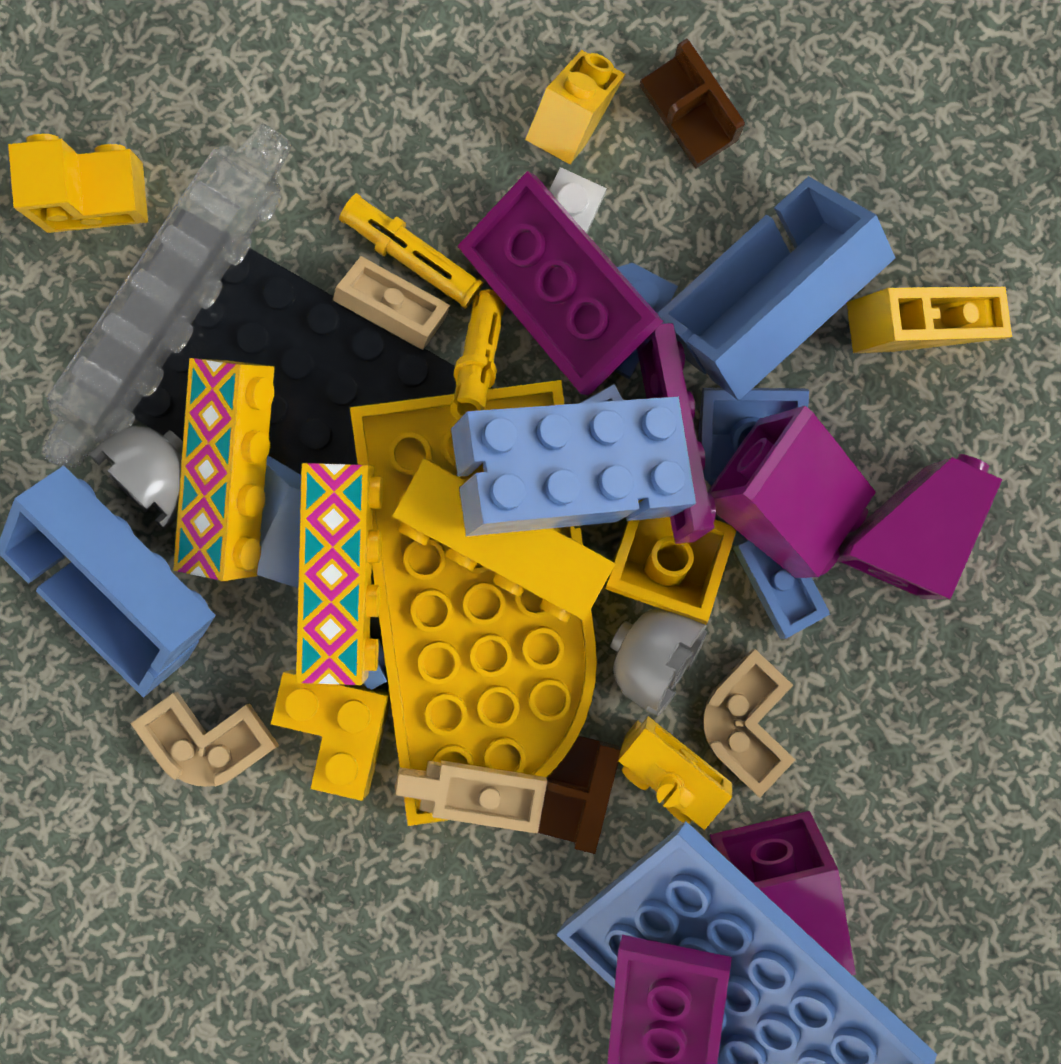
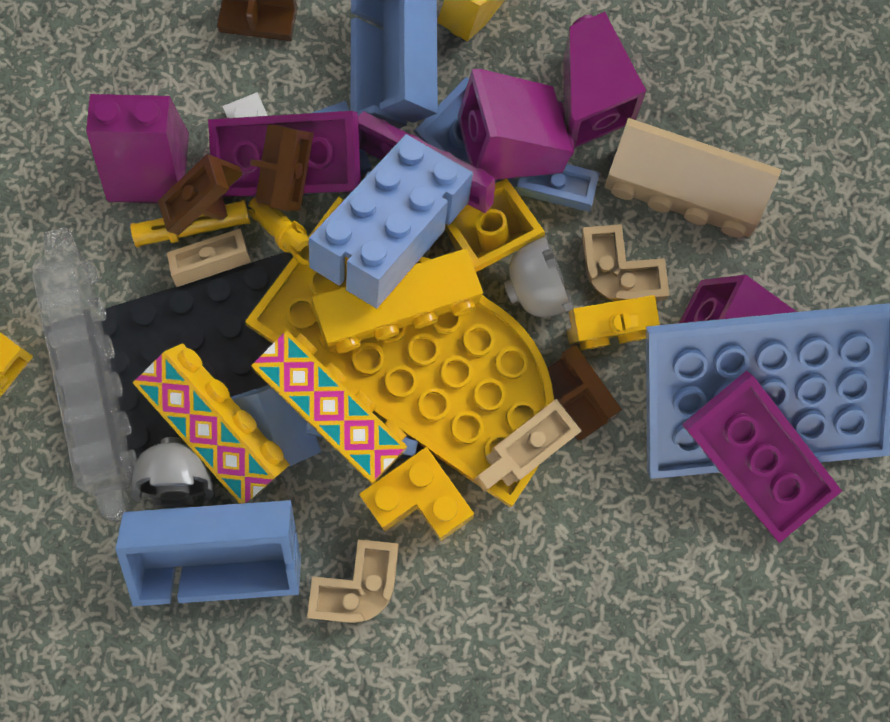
camera: 55 degrees left, 10 degrees down
(433, 131) = (136, 145): none -> magenta slope
(438, 238) = (198, 193): none -> reddish brown panel
(540, 298) = (283, 167): none -> reddish brown panel
(574, 105) = (197, 69): yellow slope -> none
(901, 718) = (691, 179): none -> tan slope

